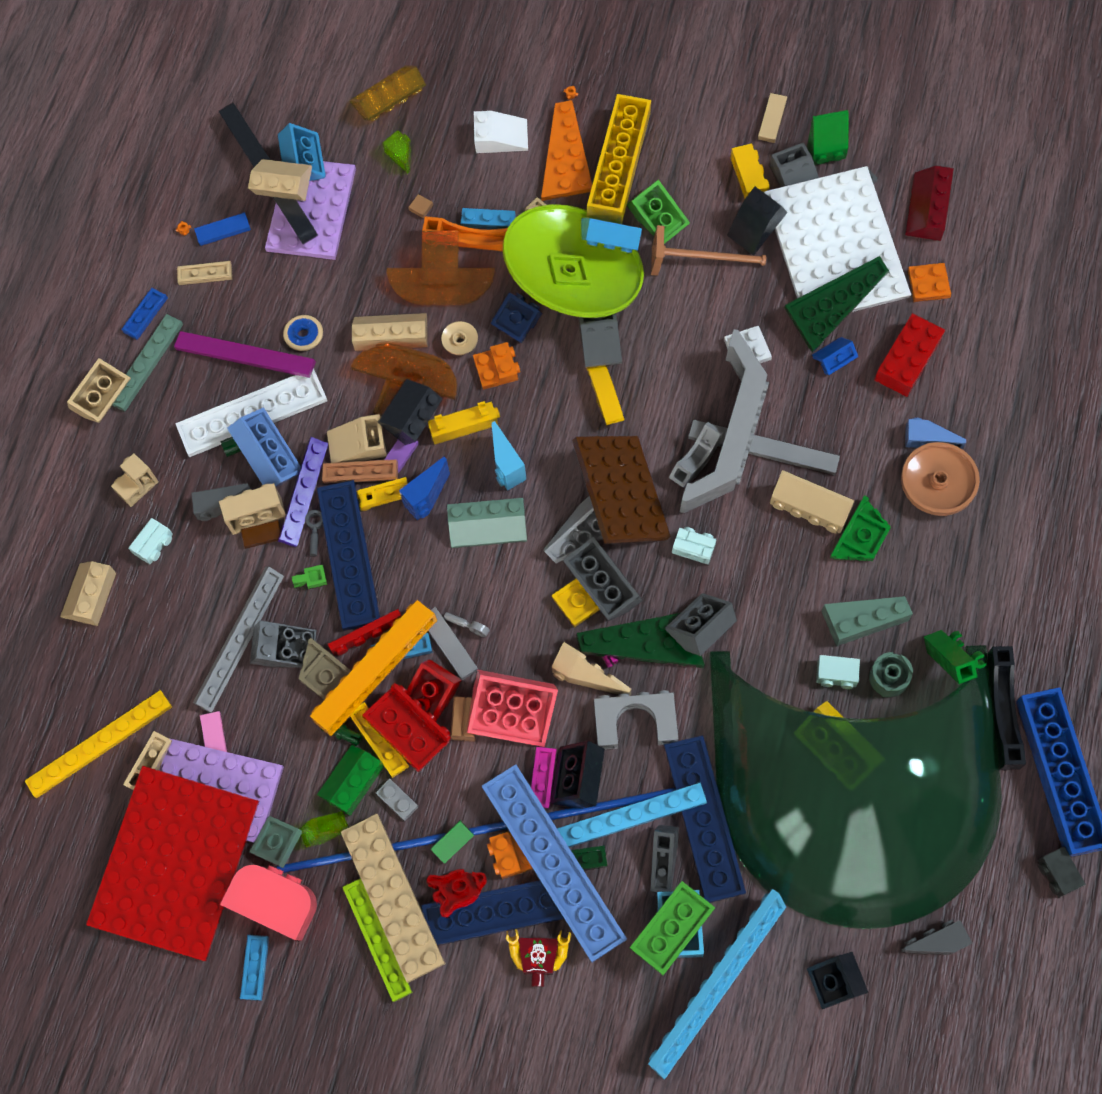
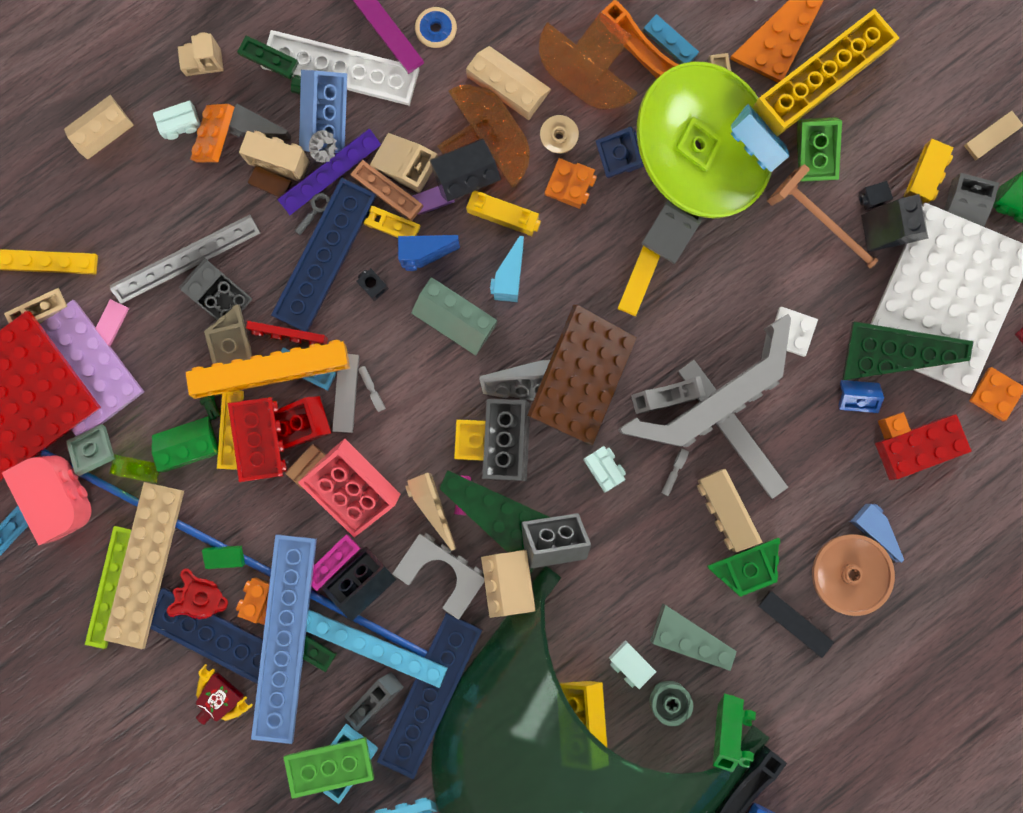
camera: 35 degrees right, 15 degrees up
(188, 529) = (212, 133): none -> orange plate
(190, 442) = (268, 57): none -> dark green plate
(280, 472) = (316, 143): none -> light grey gear
(313, 577) = (281, 252): bright green plate -> none
(397, 799) = (209, 488): light grey plate -> none
(408, 553) = (376, 291): none -> black brick
(693, 680) = (508, 584): none -> tan slope
(725, 214) = (875, 195): none -> black brick
(745, 499) = (678, 464): none -> light grey piece
(876, 355) = (894, 425): none -> orange brick
(931, 548) = (796, 624): none -> black tile

